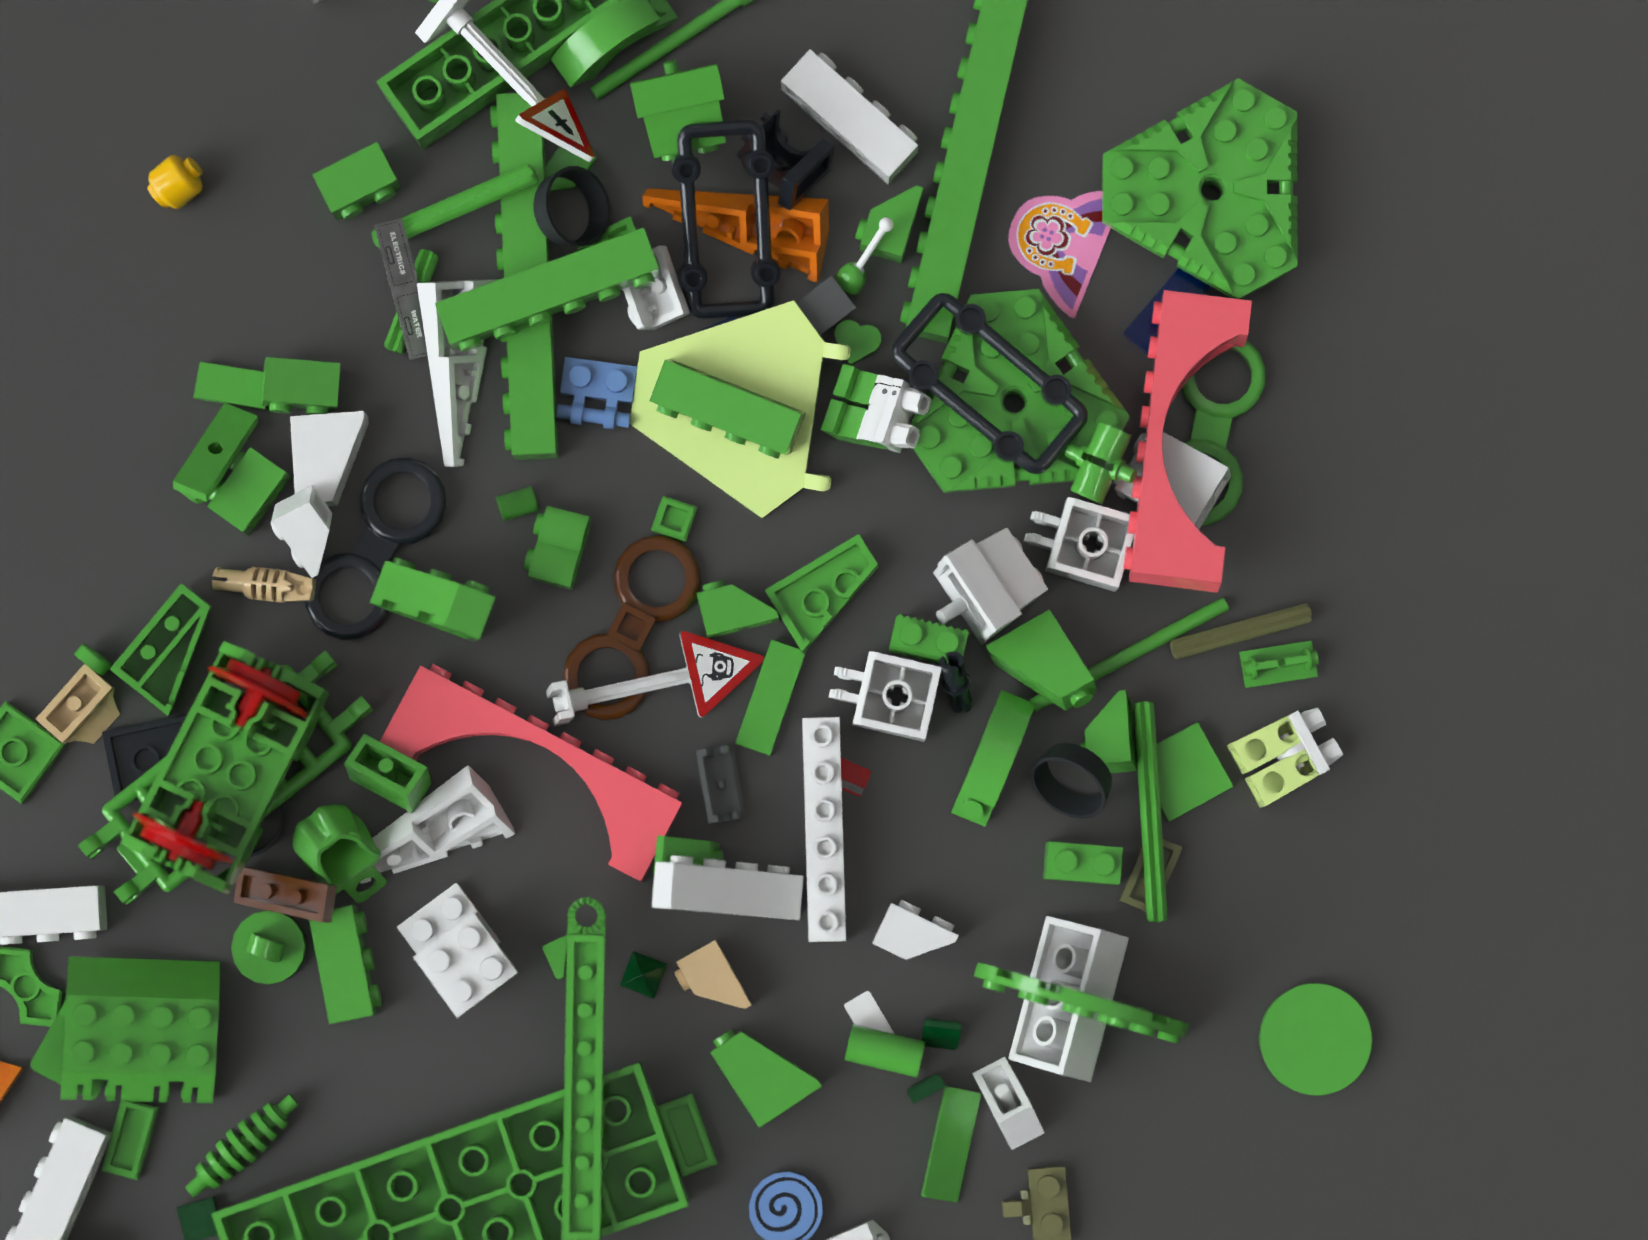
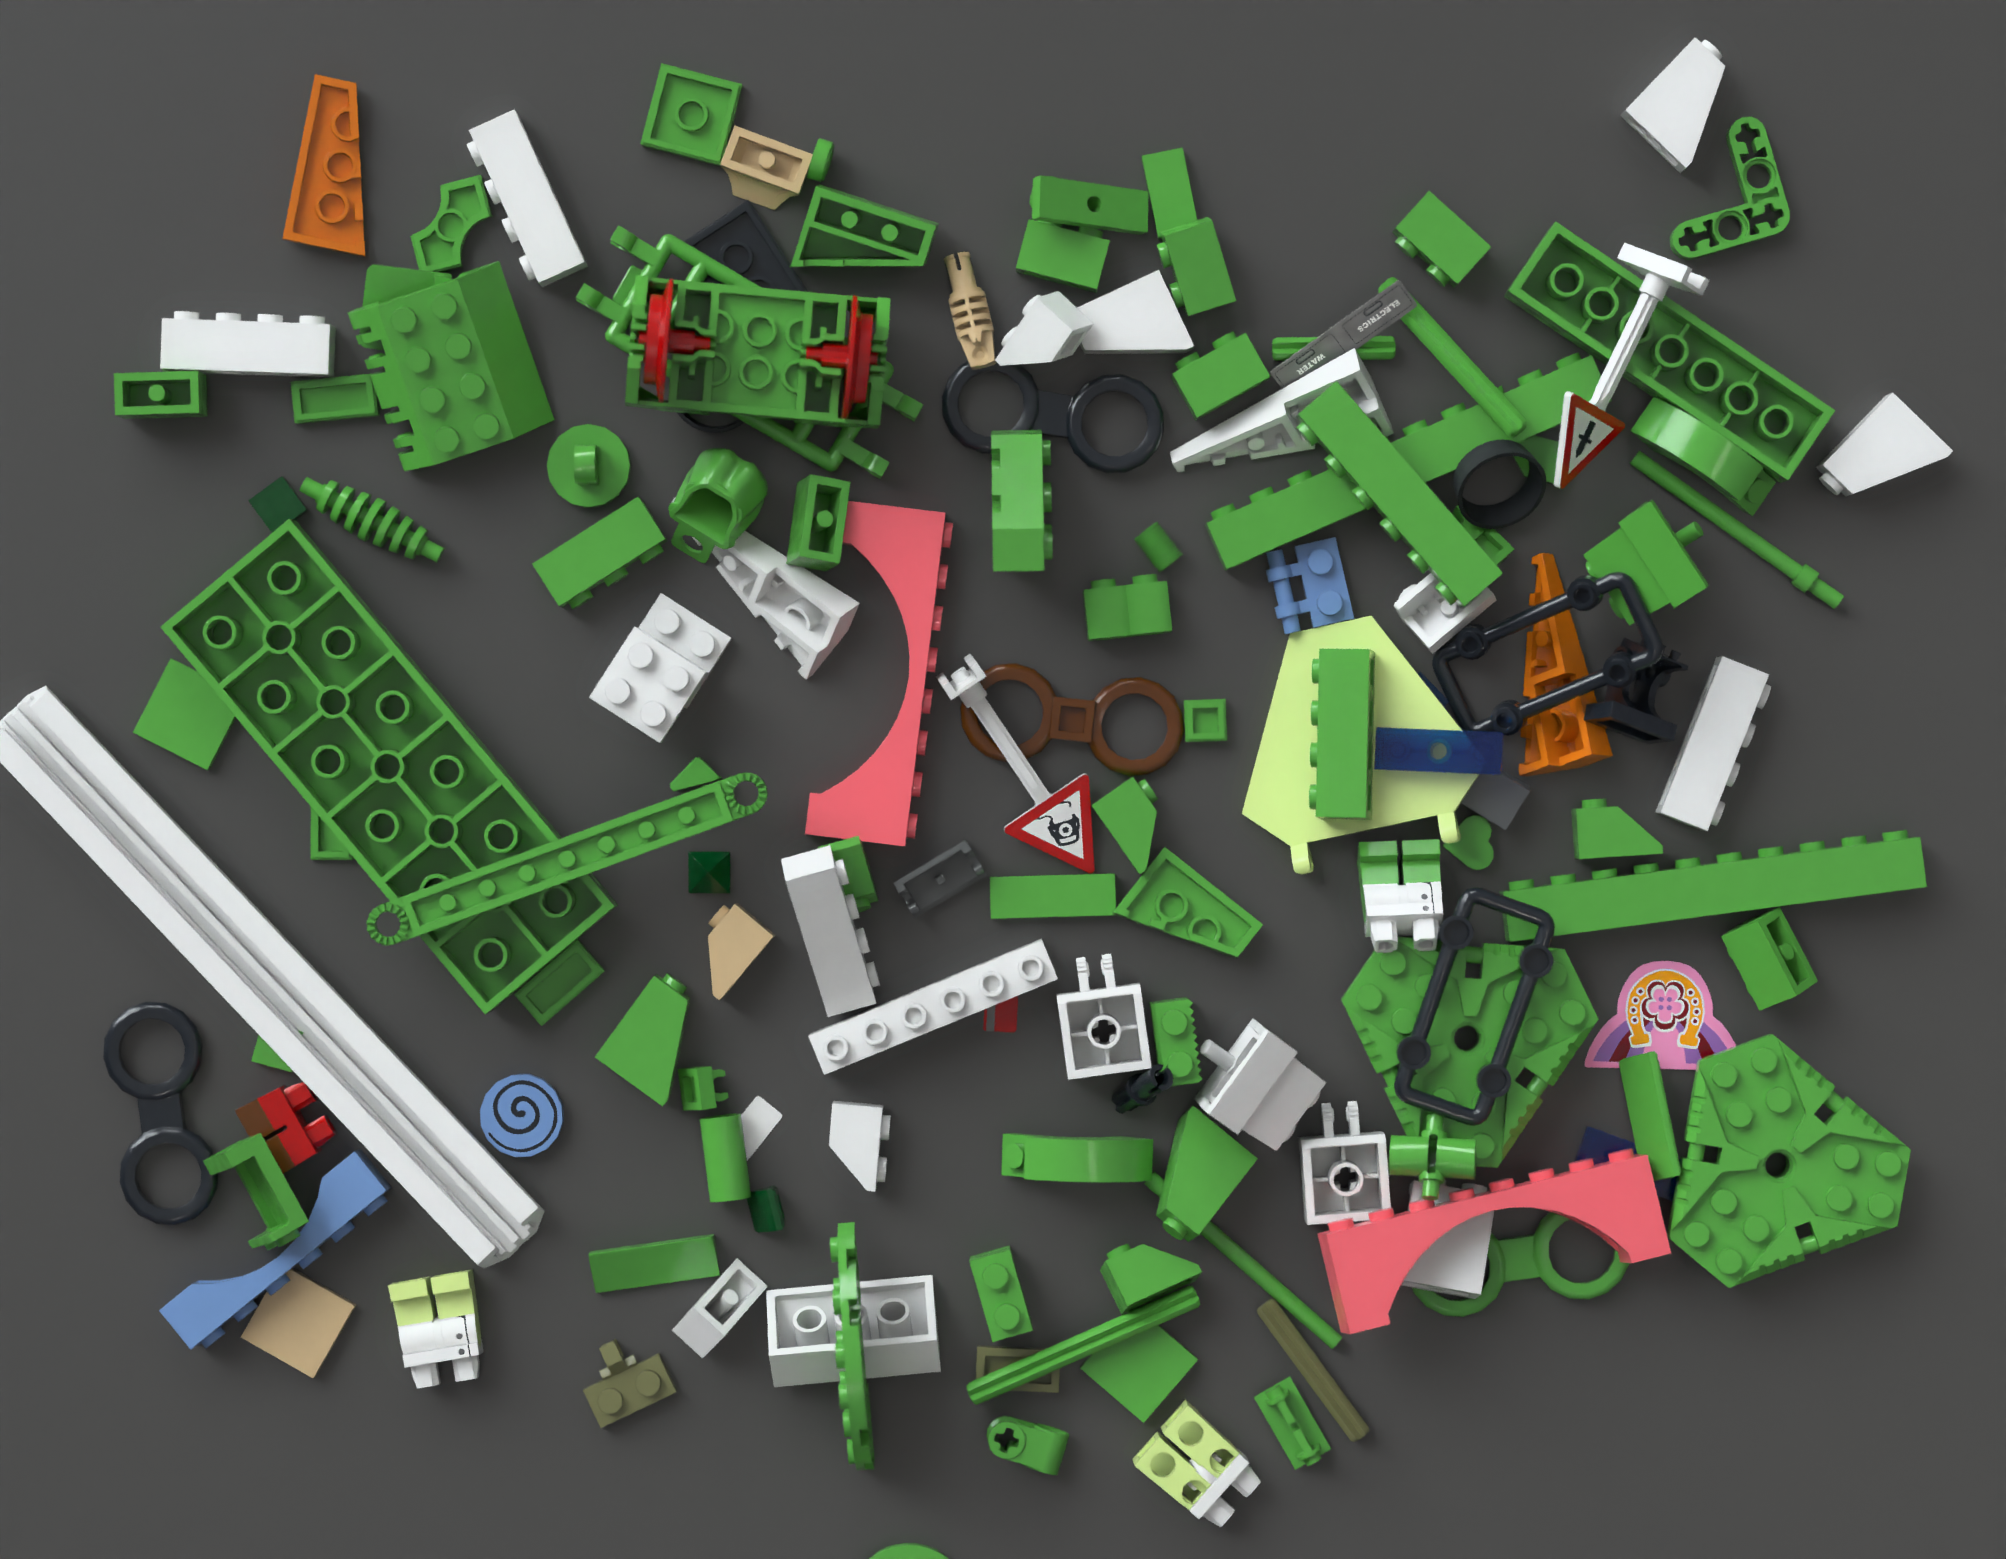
camera: 65 degrees right, 5 degrees up
(175, 181) = (1366, 44): yellow head -> none
(285, 894) = (650, 465): reddish brown plate -> none
(396, 400) = (1219, 375): none -> bright green brick
(759, 355) = (1413, 751): none -> clear blue tile
(818, 1051) = (698, 1087): none -> bright green tile
(853, 275) = (1540, 812): hinge -> none
(925, 1087) = (702, 1215): dark green tile -> none
(1041, 135) = (1769, 958): none -> bright green brick
(1063, 799) = (1062, 1246): black tyre -> none
(1131, 277) = (1650, 1114): none -> bright green slope
(1219, 883) = (1035, 1445): none -> bright green piece

